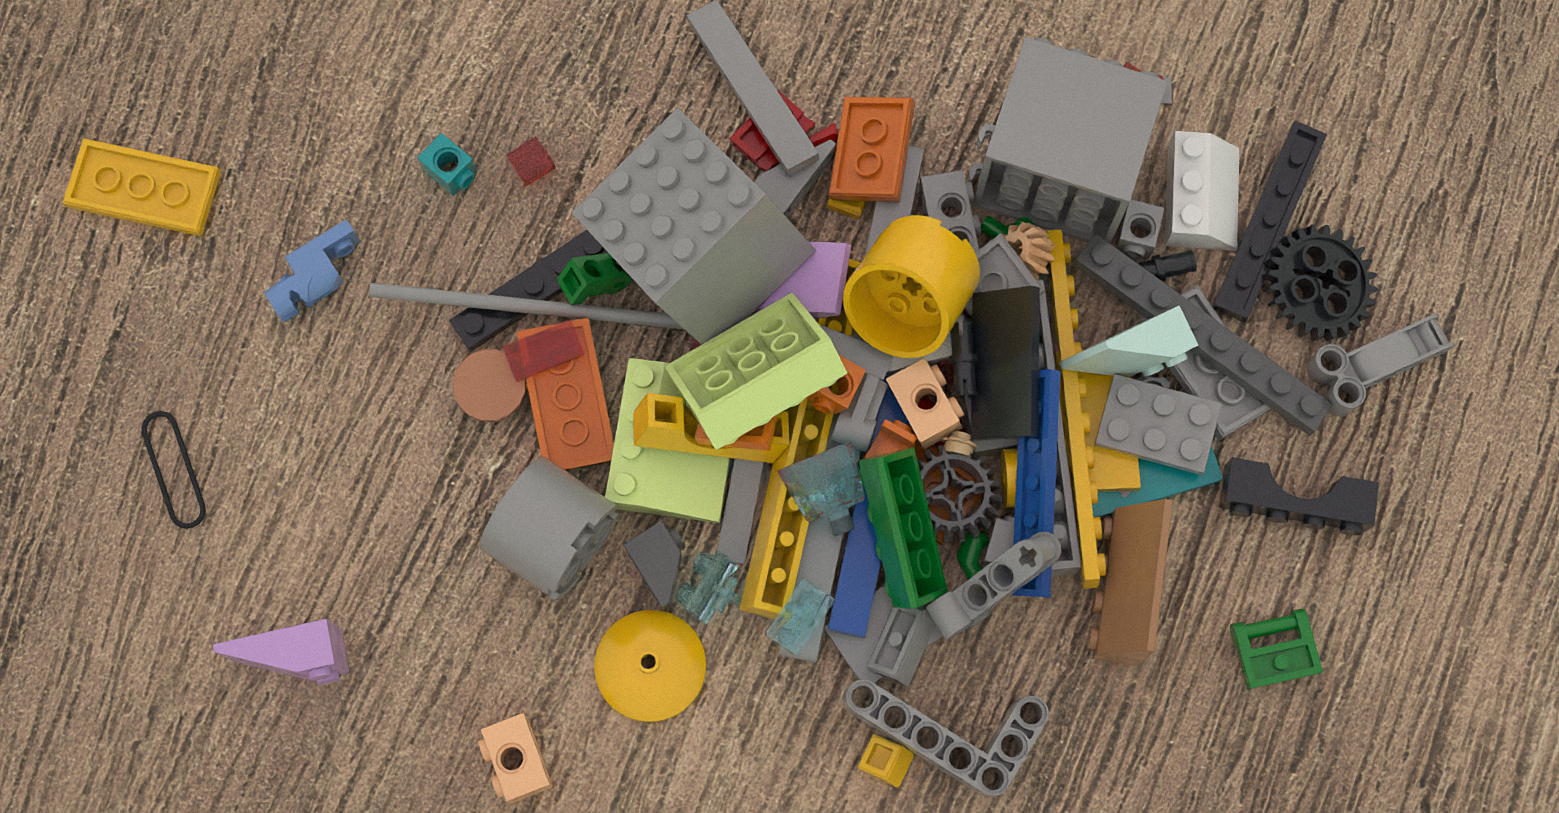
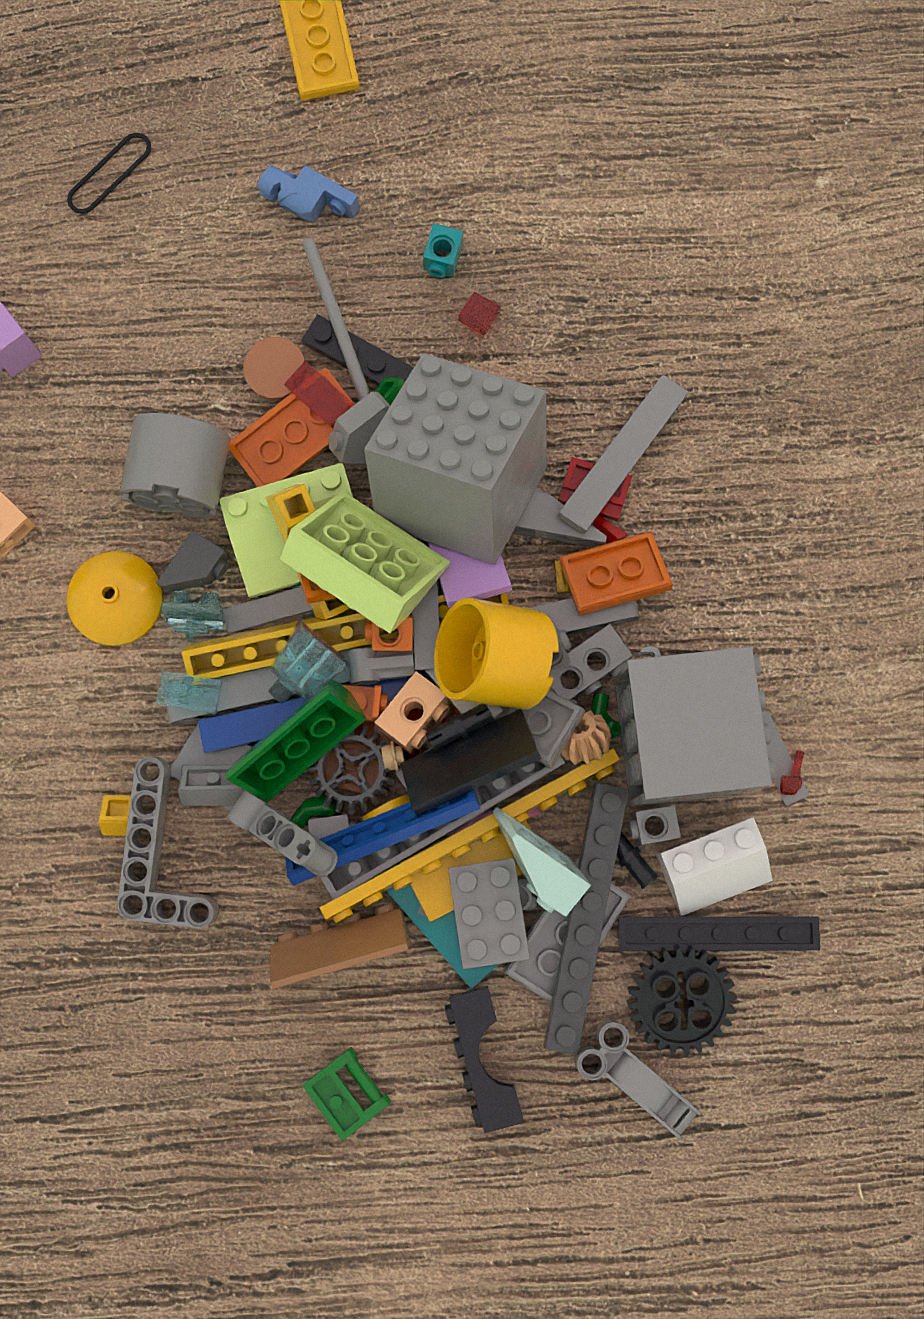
camera: 65 degrees right, 5 degrees up
(604, 324) = (356, 427): none -> light grey slope

